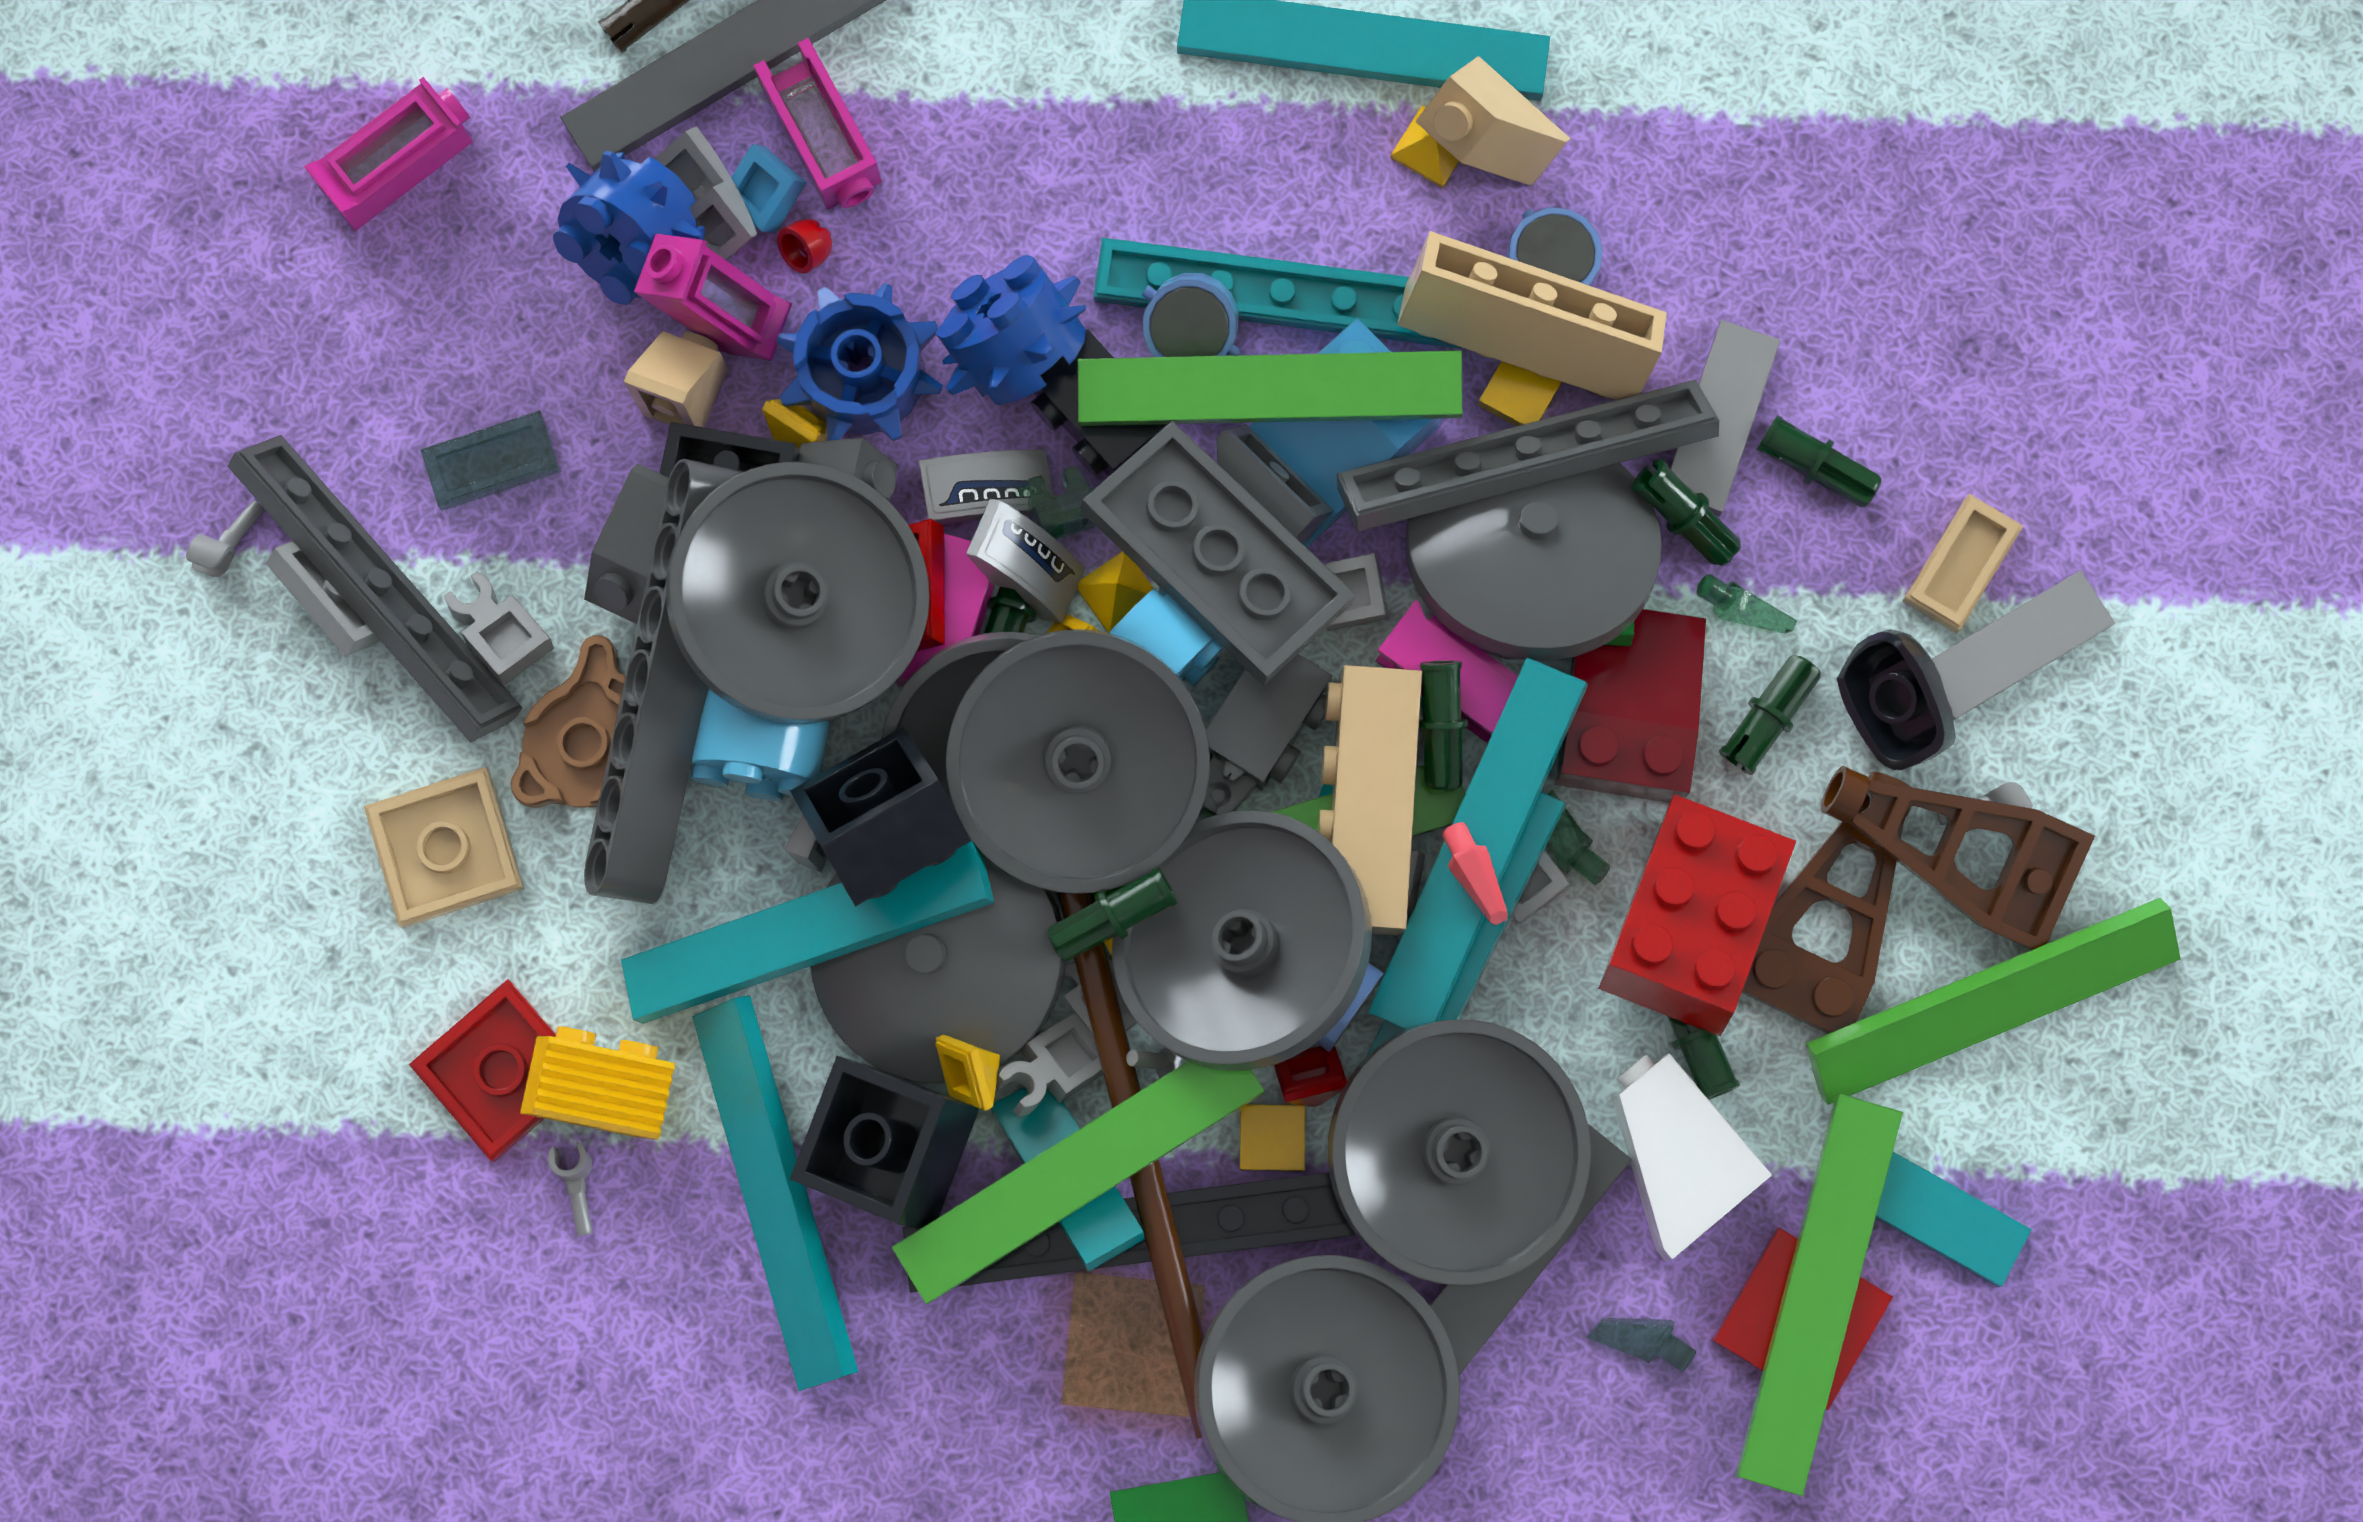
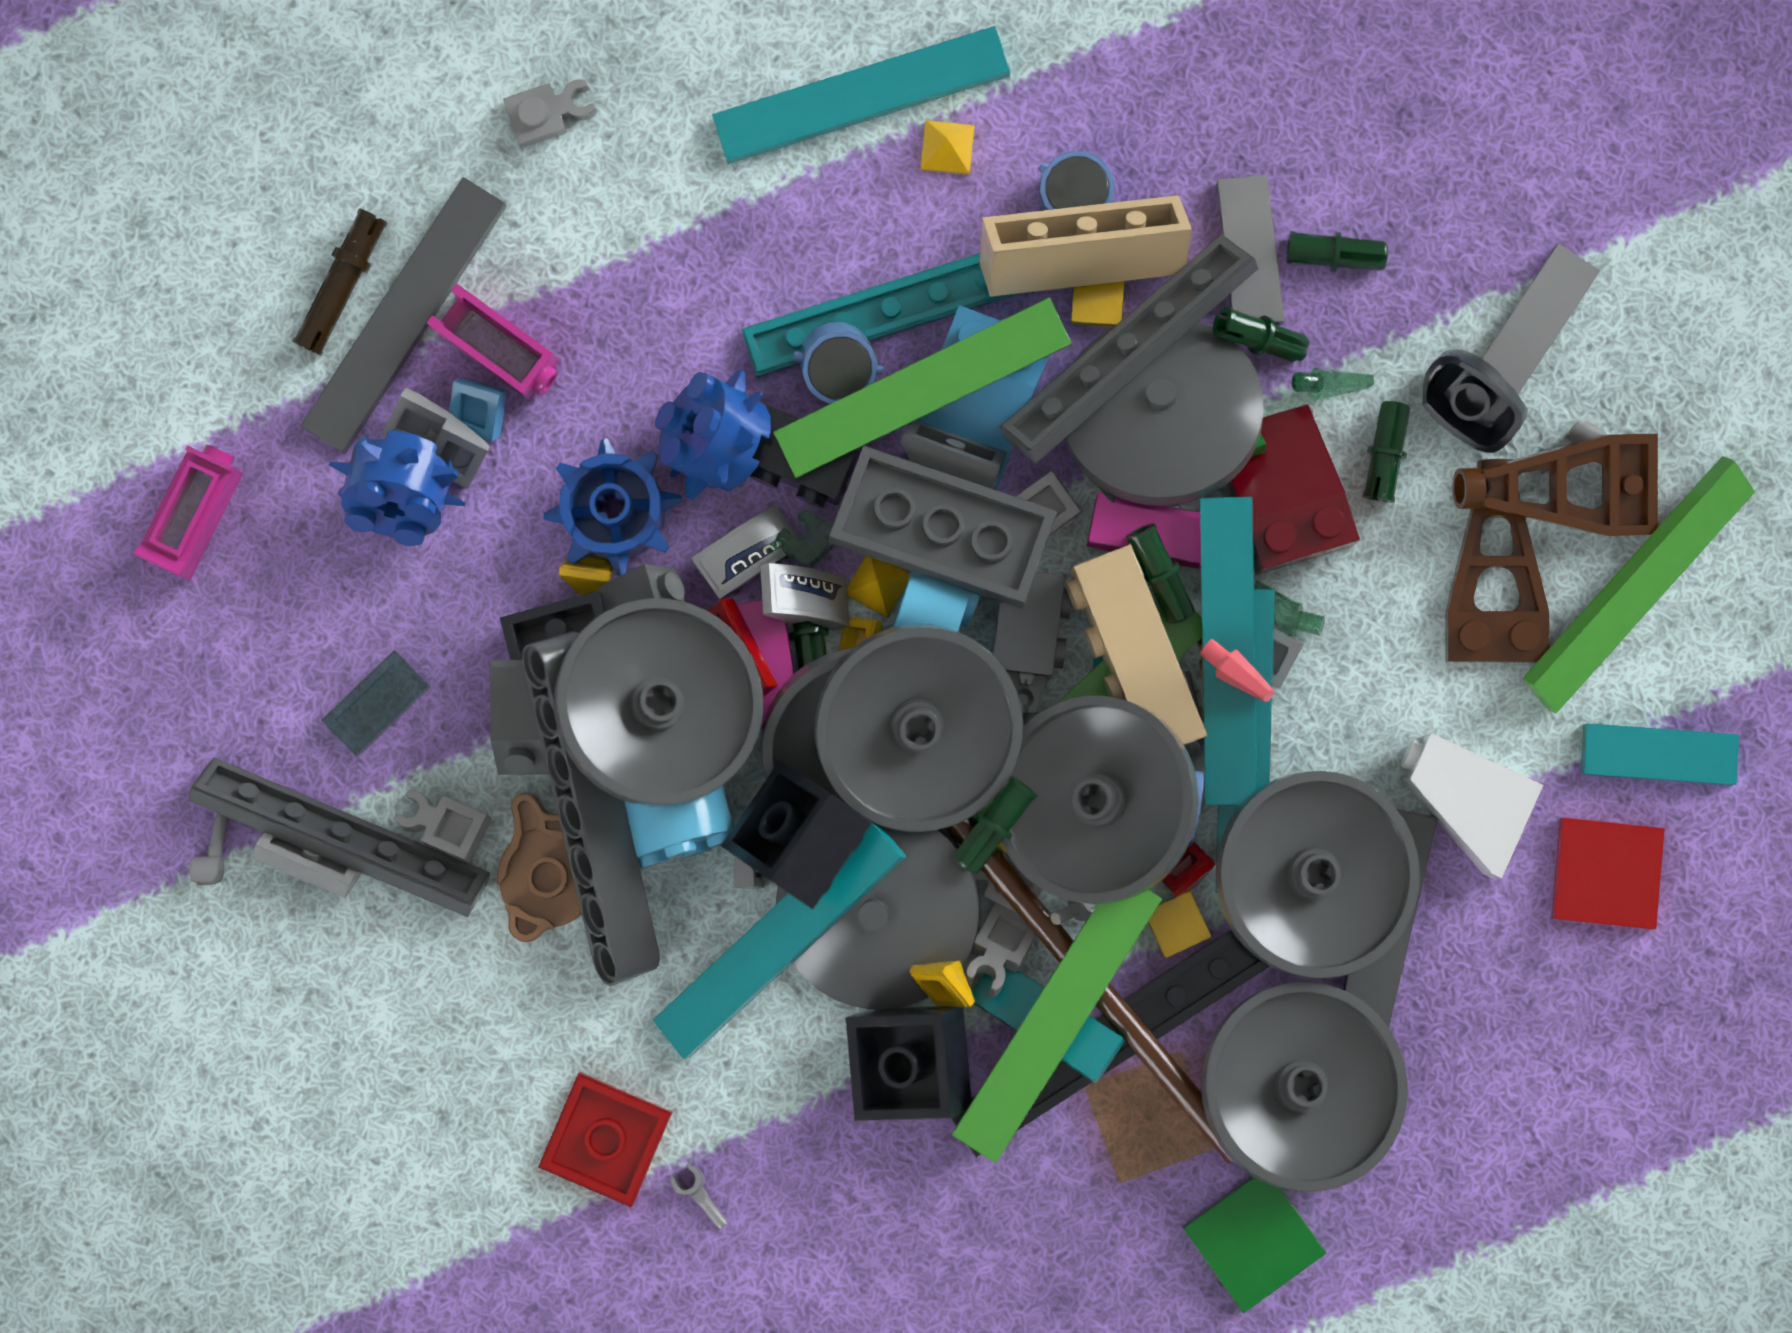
camera: 20 degrees left, 5 degrees up
(444, 847) = (484, 1000): tan tile -> none
(598, 1085) = (684, 1119): yellow brick -> none
(677, 378) = (486, 580): tan slope -> none
(712, 297) = (484, 511): dark pink window -> none
(775, 1204) = (852, 1143): teal tile -> none
(801, 235) = (523, 428): red hinge -> none
(1492, 125) = (986, 113): tan slope -> none
(1644, 1340) = (1504, 941): bar -> none
(1697, 915) = (1405, 624): red brick -> none
(1705, 1059) = (1441, 708): dark green axle -> none
(1819, 1295) = (1613, 852): bright green tile -> none
(1962, 563) = (1471, 277): tan tile -> none

